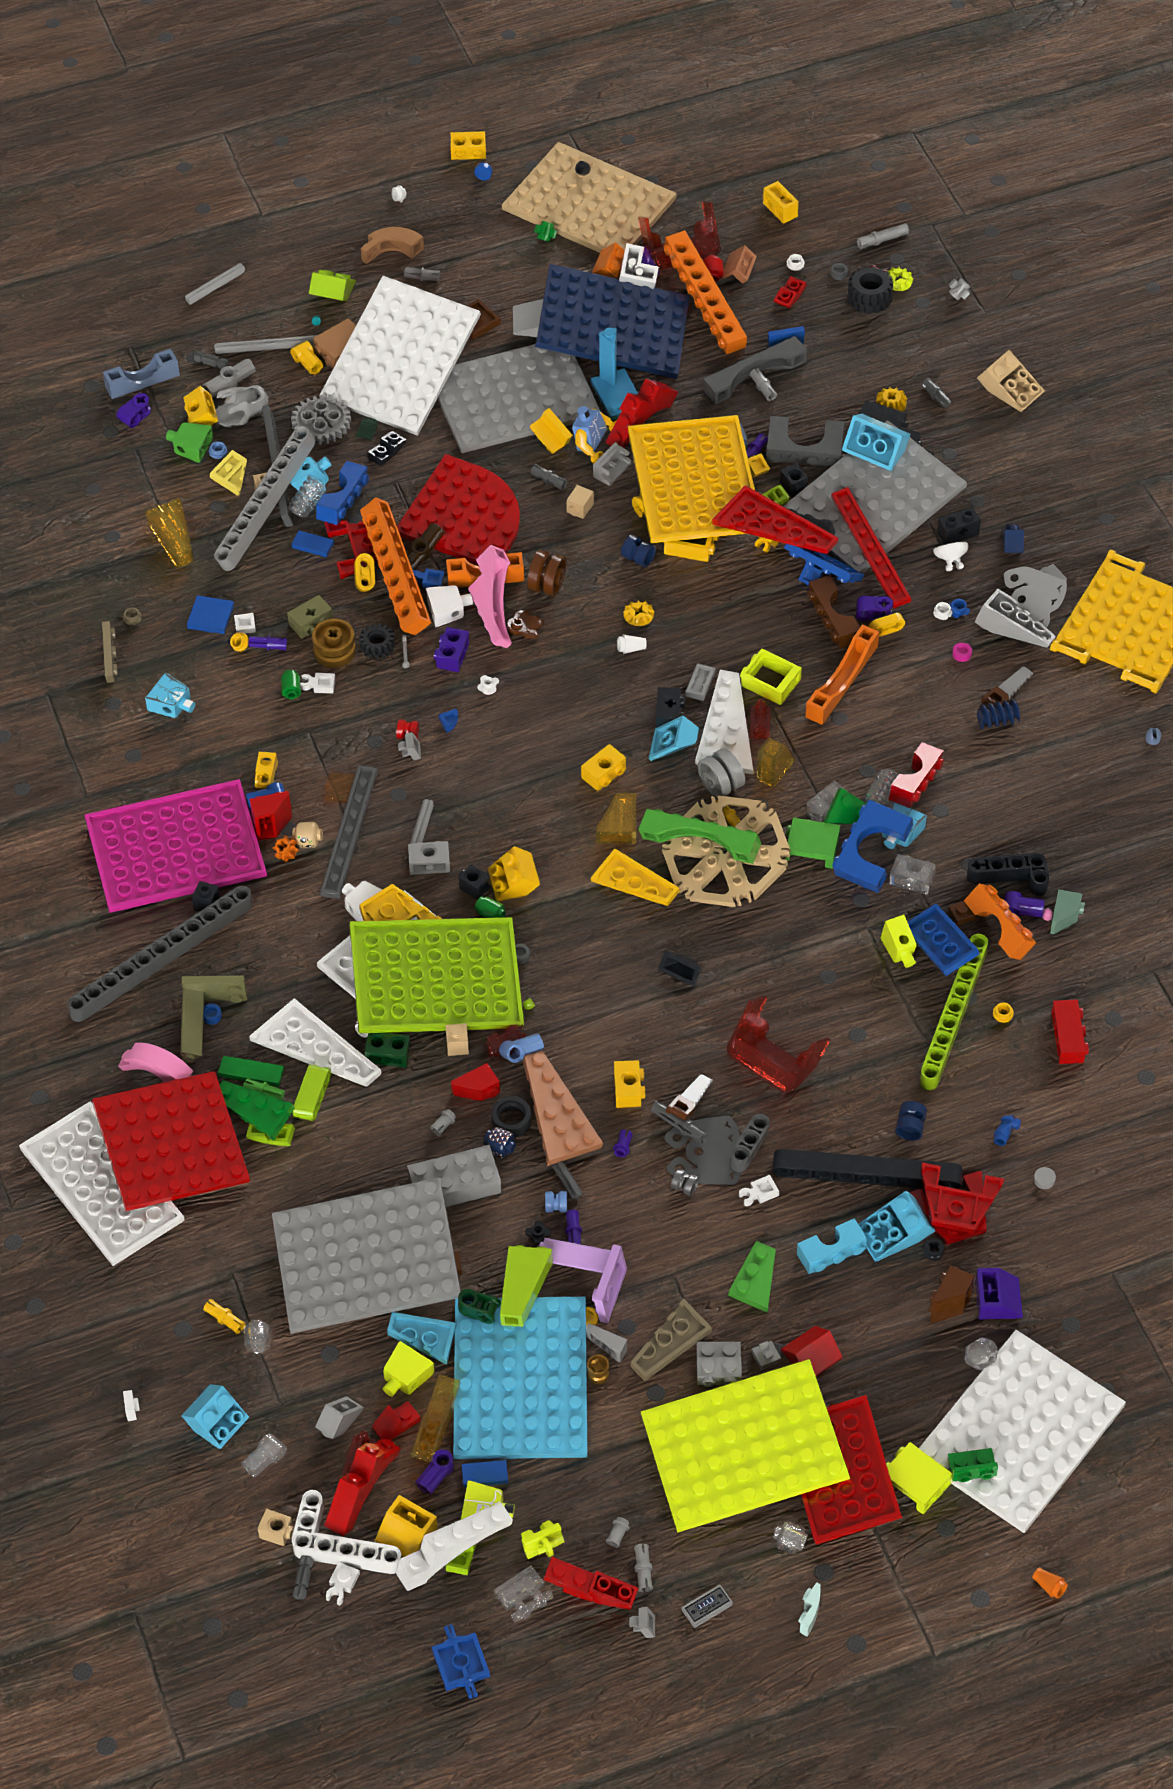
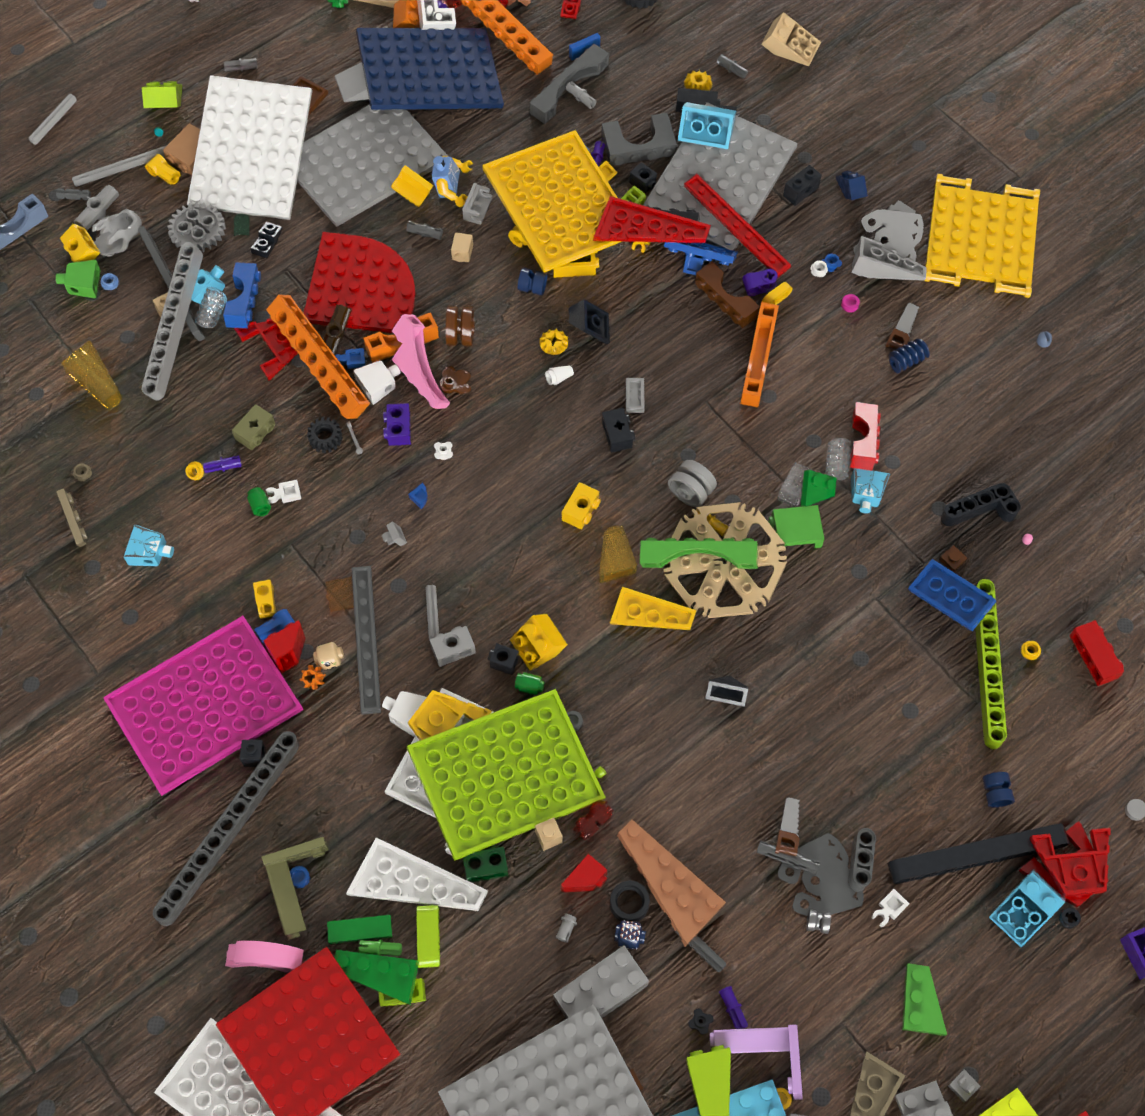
camera: 20 degrees left, 10 degrees up
(134, 410) = (15, 264): dark purple piece -> none
(210, 614) = (157, 449): blue tile -> none
(230, 472) = (129, 300): light yellow wing -> none
(245, 623) = (193, 450): white plate -> none
(312, 544) = (230, 352): blue tile -> none
(333, 643) = (285, 448): pearl gold wheel -> none
(364, 573) = (290, 369): yellow plate -> none
(392, 239) = (201, 38): medium nougat arch -> none
(405, 727) = (384, 517): red wheel -> none
(521, 1047) = (609, 828): medium blue piece -> none
(556, 1201) = (706, 982): medium blue wheel -> none
(612, 383) = (449, 126): dark azure piece -> none
(622, 1149) = (744, 895): dark purple pin -> none
(625, 1073) = (726, 843): yellow brick -> none
(638, 408) = (483, 146): red arch -> none
(673, 737) = (632, 459): medium azure slope -> none
(683, 601) = (590, 320): none -> black slope
(726, 722) = (673, 431): white wing -> none
(760, 720) = (702, 419): clear red hinge -> none
(764, 658) = (700, 360): neon yellow window -> none
(767, 1059) = (845, 764): clear red windscreen -> none
(773, 762) = (733, 460): clear yellow slope -> none
(815, 1345) = (1004, 1066): red slope -> none
(817, 1256) = (968, 961): medium azure arch -> none
(872, 819) = (840, 540): blue arch -> none
(899, 940) = (915, 607): neon yellow torso -> none
(912, 874) = (889, 539): clear brick -> none
(952, 553) = (807, 214): white hair -> none
(952, 1294) = (1112, 965): reddish brown slope -> none
(1004, 1130) = (1081, 773): blue arm -> none
(1014, 937) = (1014, 572): orange arch -> none
(1024, 906) = (1001, 538): dark purple piece -> none
(1066, 910) = (1043, 530): sand green slope -> none

